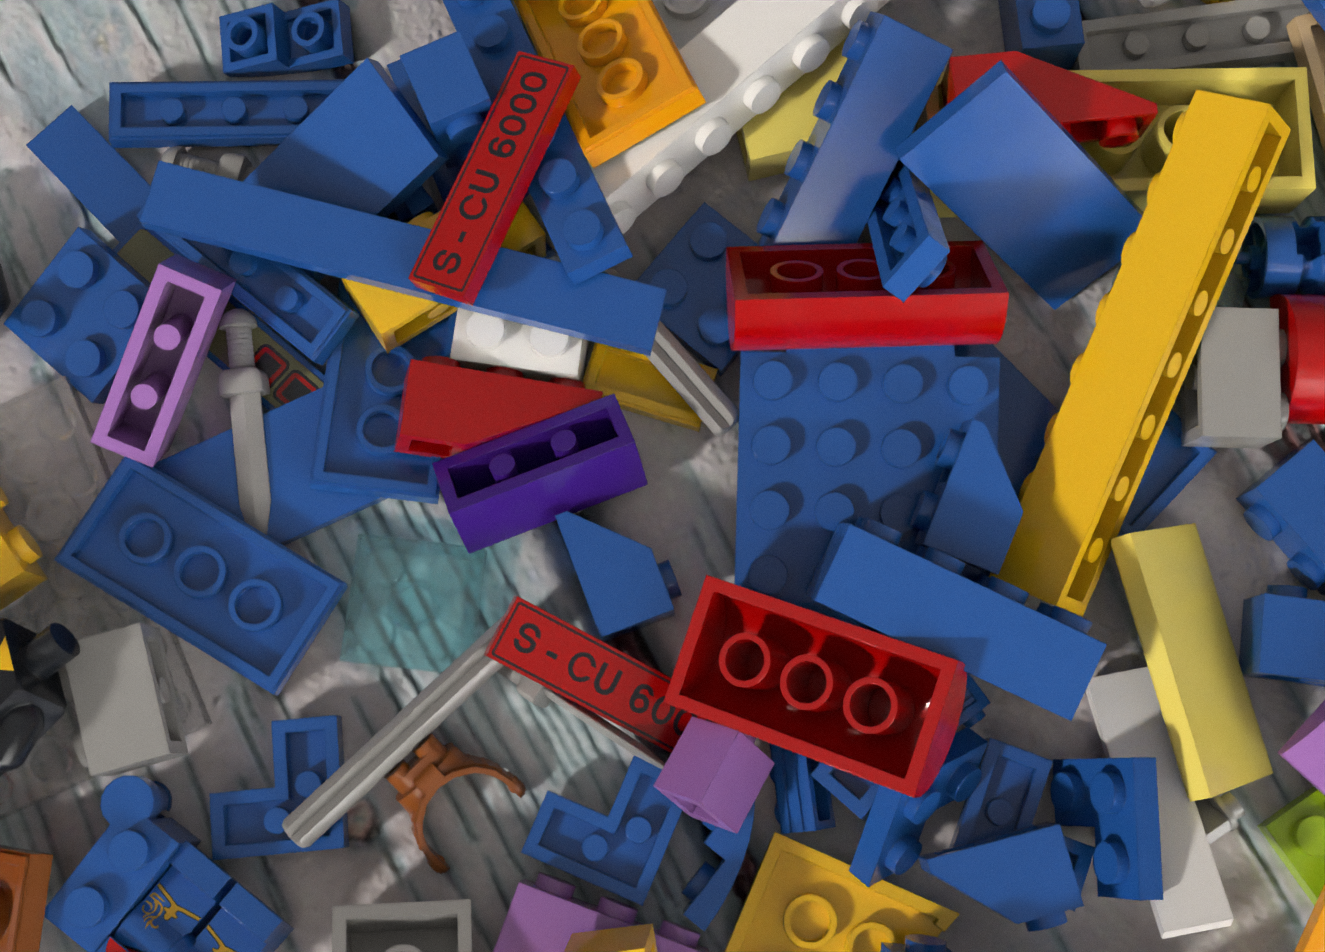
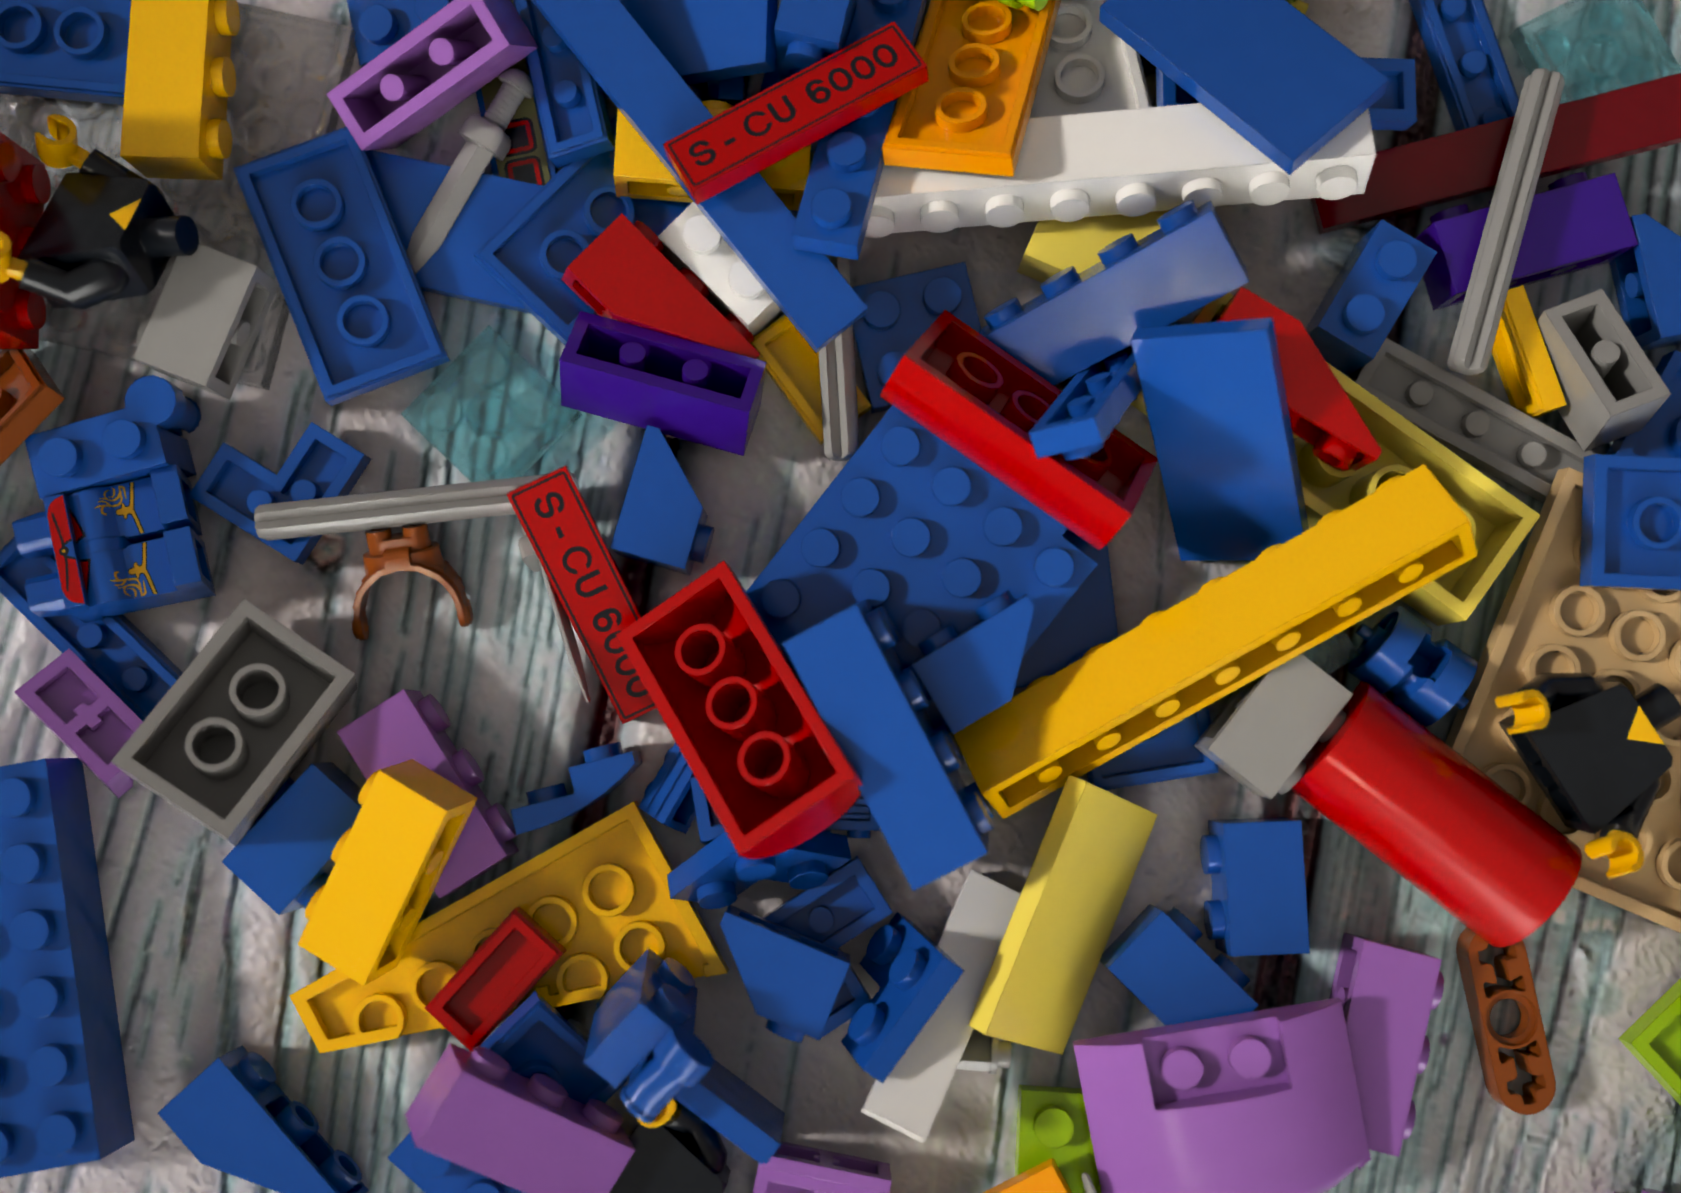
camera: 30 degrees right, 5 degrees up
(609, 850) = (507, 722): blue plate -> none
(714, 774) = (614, 721): medium lavender brick -> none

